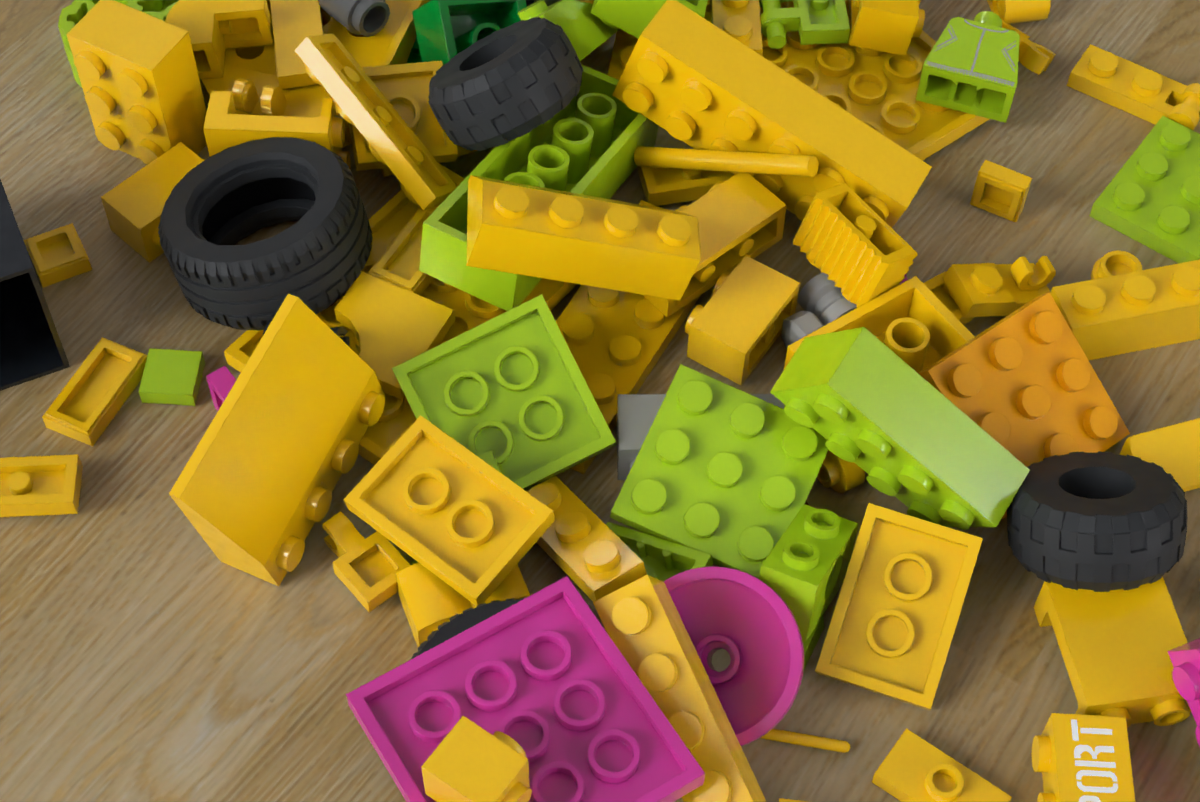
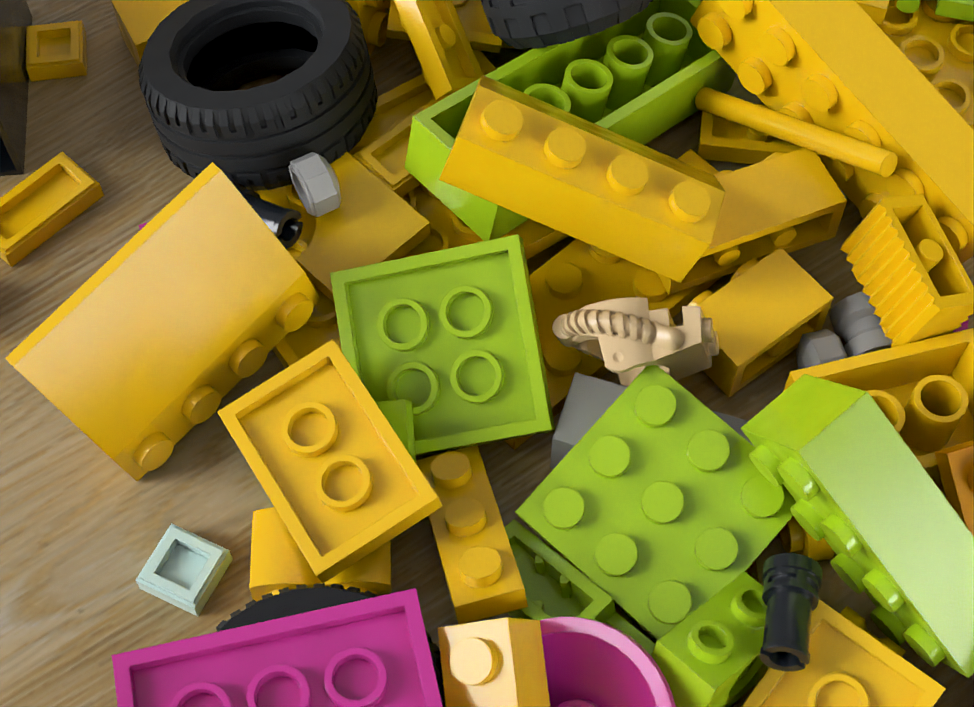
camera: 20 degrees right, 5 degrees up
(172, 377) = (115, 212): lime tile -> none
(349, 641) = (184, 569): none -> light aqua tile
(350, 301) = (315, 184): none -> light grey tile
(364, 565) = (230, 487): yellow plate -> none
(655, 351) = (633, 337): none -> tan piece
(848, 506) = (790, 595): none -> black pin

